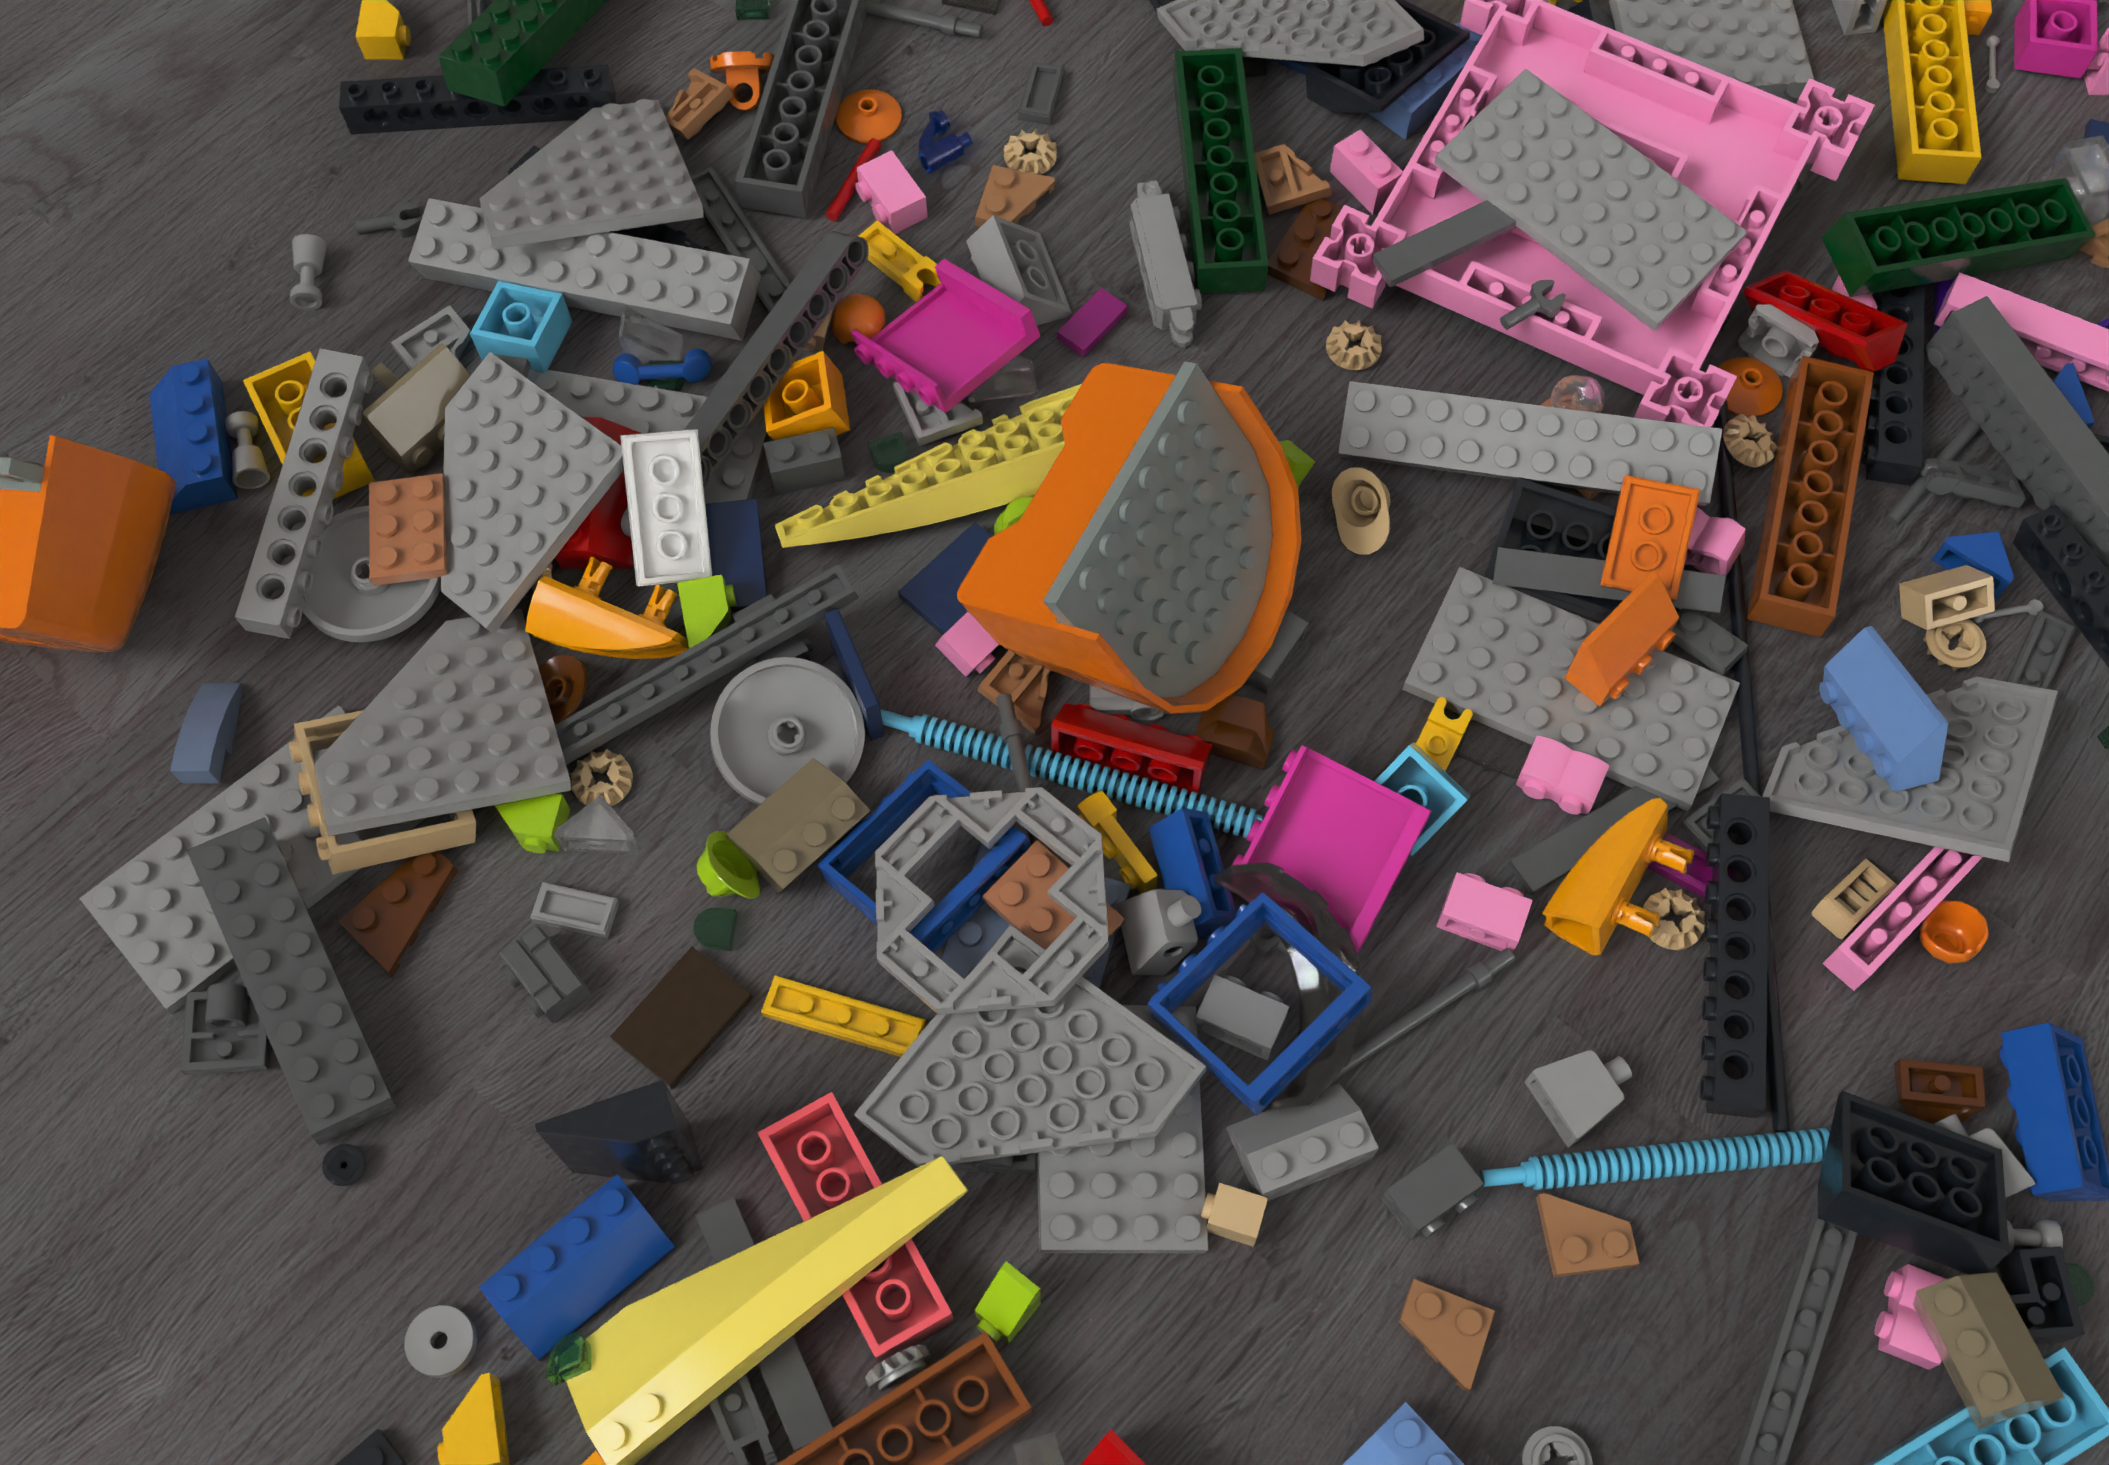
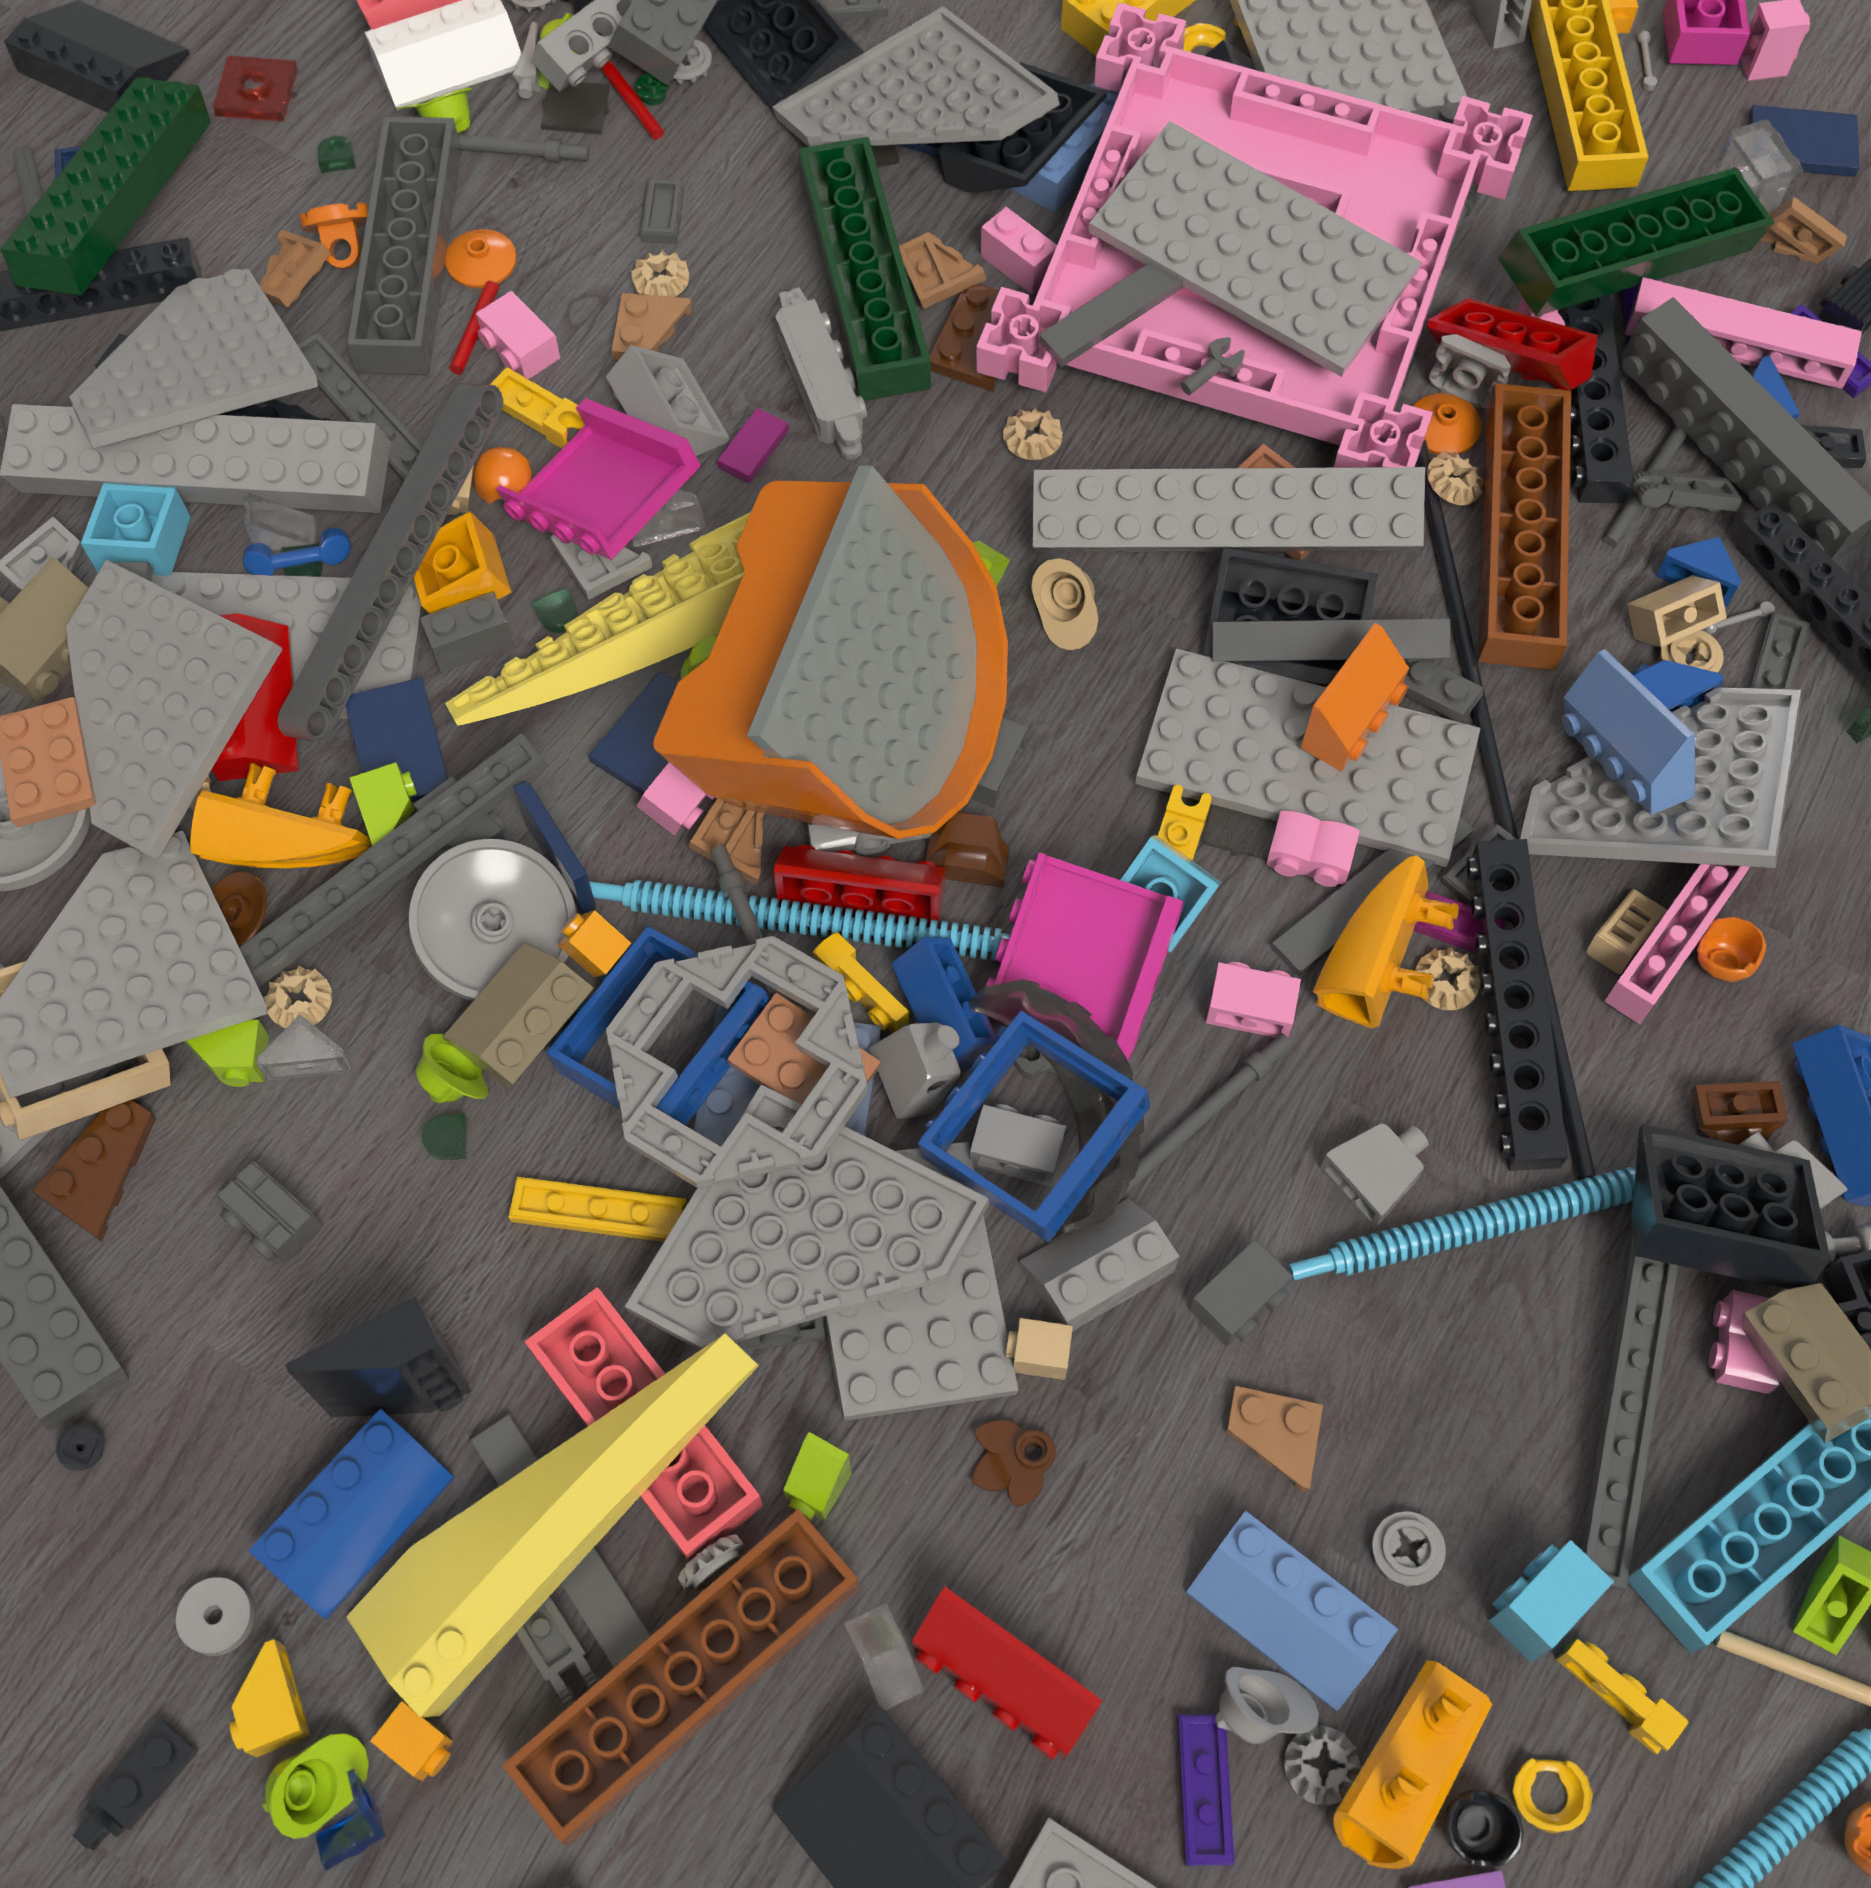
camera: 10 degrees left, 0 degrees up
(568, 1359) = (357, 1611): clear green tile -> none
(575, 910) = (290, 1141): light grey tile -> none
(666, 506) = (325, 698): white tile -> none
(681, 1017) = (423, 1235): dark brown tile -> none
(876, 767) = (593, 942): none -> light orange brick
(944, 151) = (569, 284): clear blue plant -> none
(1186, 1316) = (1006, 1463): none -> reddish brown plate
(1578, 394) = (1272, 451): clear head -> none
(1584, 1239) = (1403, 1317): medium nougat wing -> none
(1650, 534) = (1366, 586): orange tile -> none
(1714, 543) = (1419, 587): bright pink brick -> none
(1936, 667) = (1677, 683): none -> blue slope

